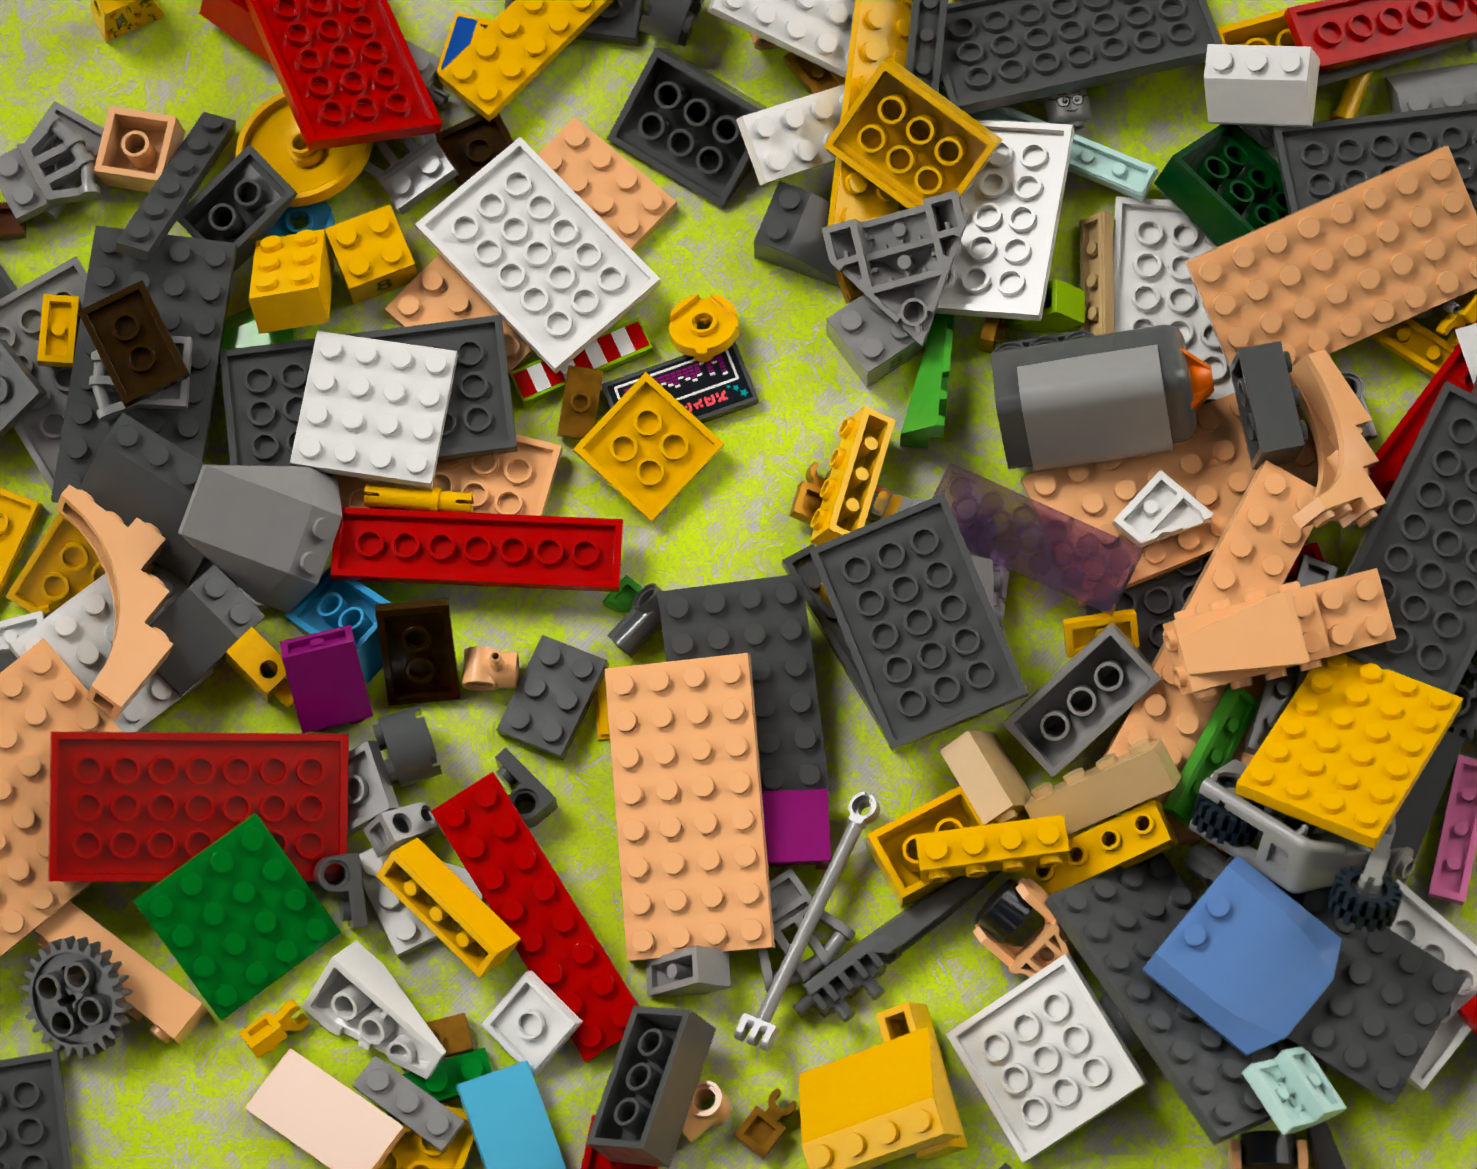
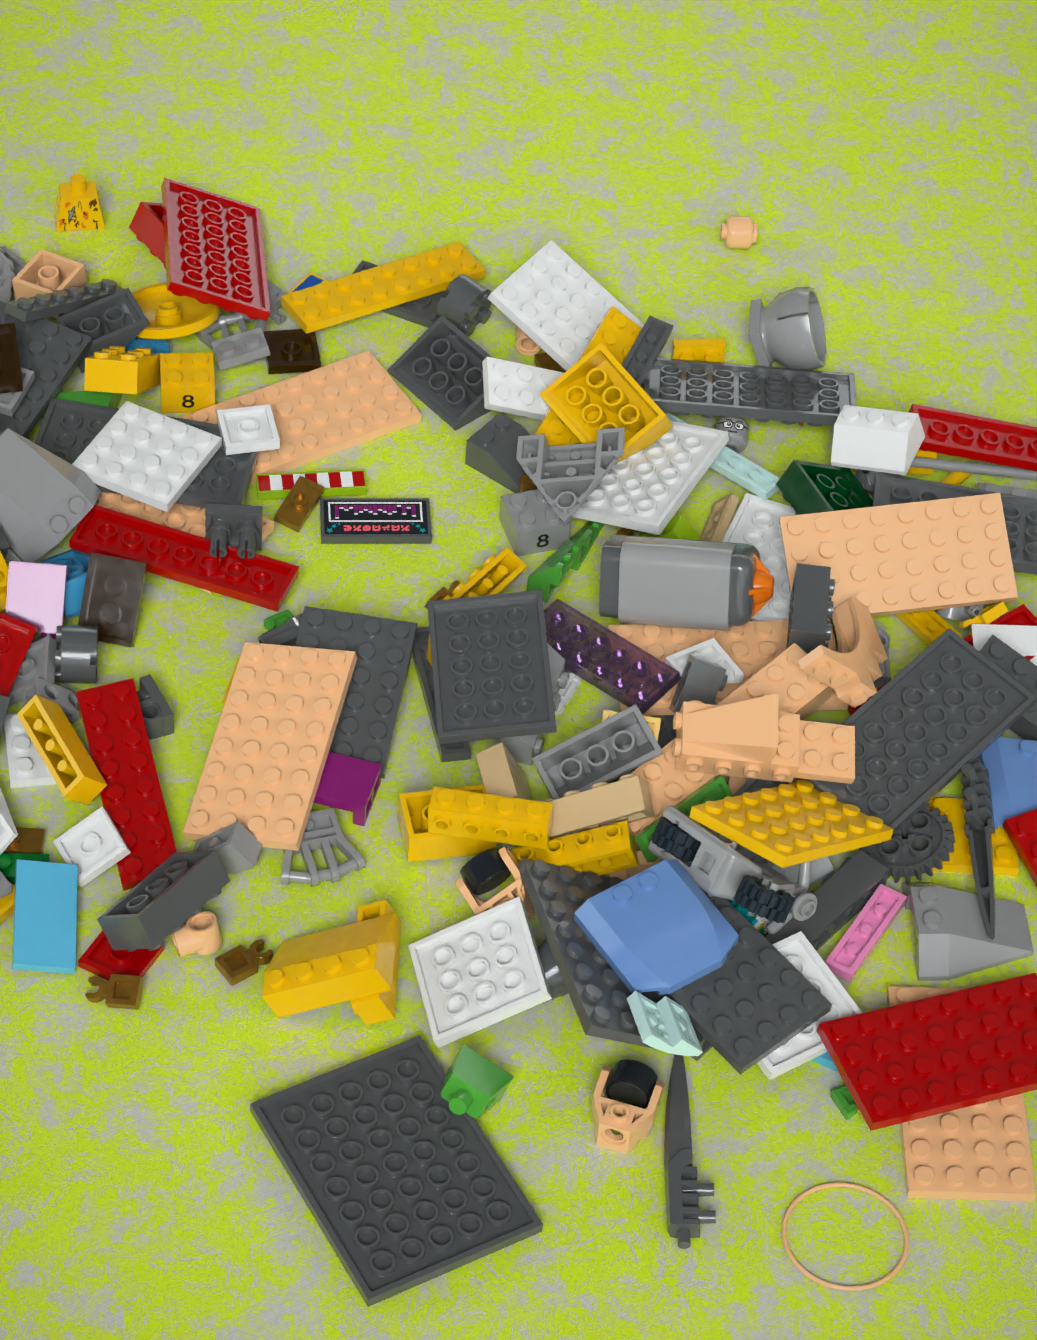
camera: 10 degrees right, 25 degrees down
(418, 499) = (166, 519): yellow pin -> none
(482, 322) = (248, 429): none -> white tile
(489, 669) = (161, 632): light nougat piece -> none
(538, 254) = (313, 408): white plate -> none
(538, 488) = (233, 526): none -> dark grey plate
(552, 697) = (198, 665): dark grey plate -> none
(648, 447) = (337, 538): yellow plate -> none
(707, 342) = (408, 484): yellow plate -> none
(761, 1023) = (267, 896): light grey hinge -> none
(882, 947) = (382, 879): dark grey piece -> none
(1168, 557) = (699, 682): none -> dark grey brick

